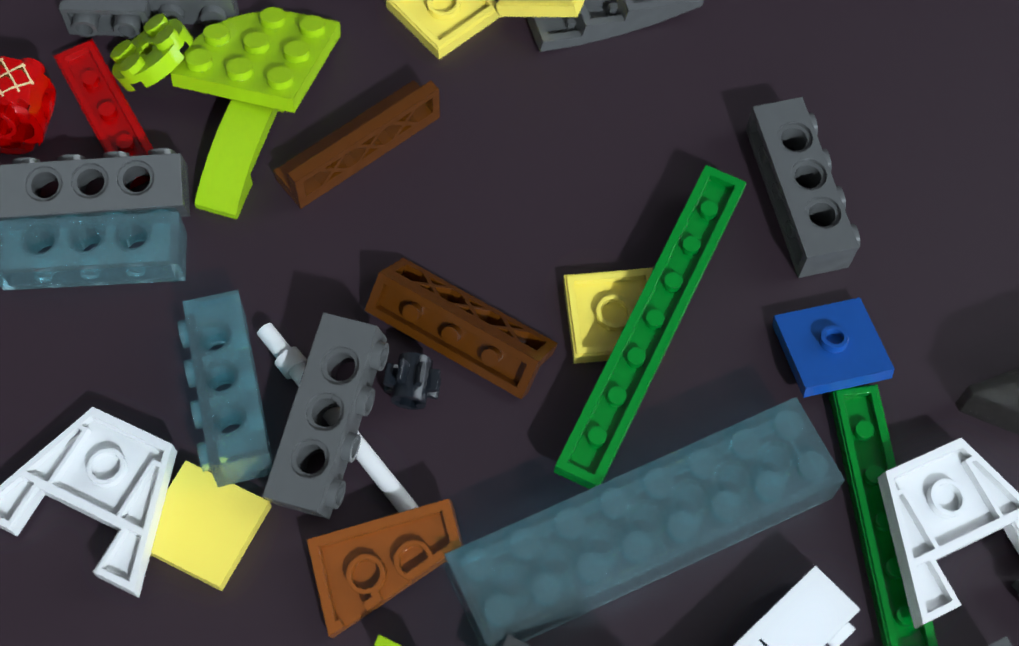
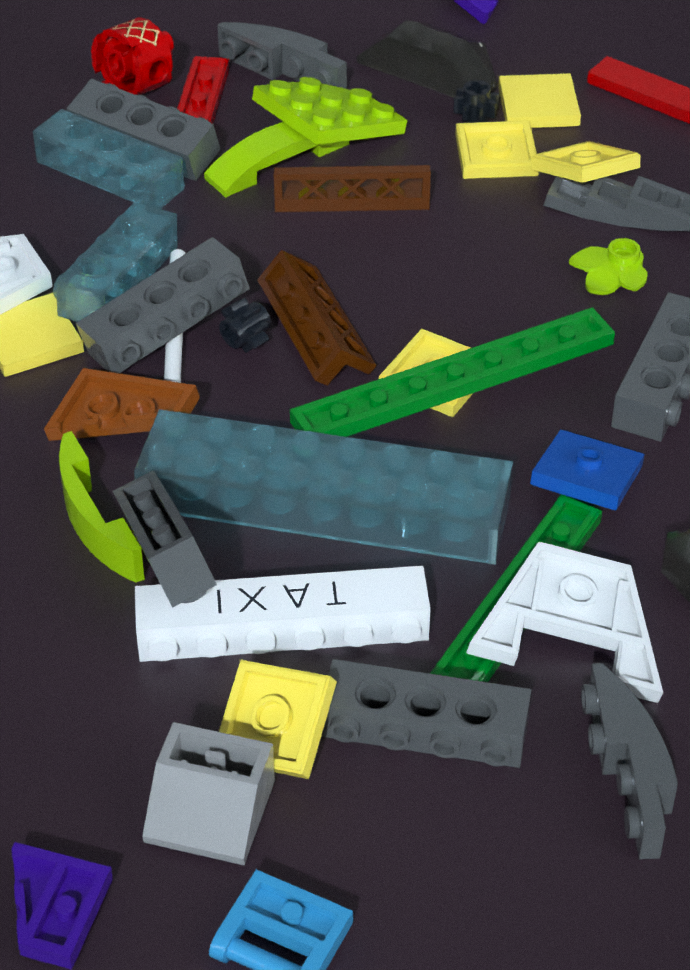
camera: 40 degrees right, 20 degrees down
(150, 53) = (266, 71): lime plate -> none
(661, 99) = (612, 266): none -> lime plate

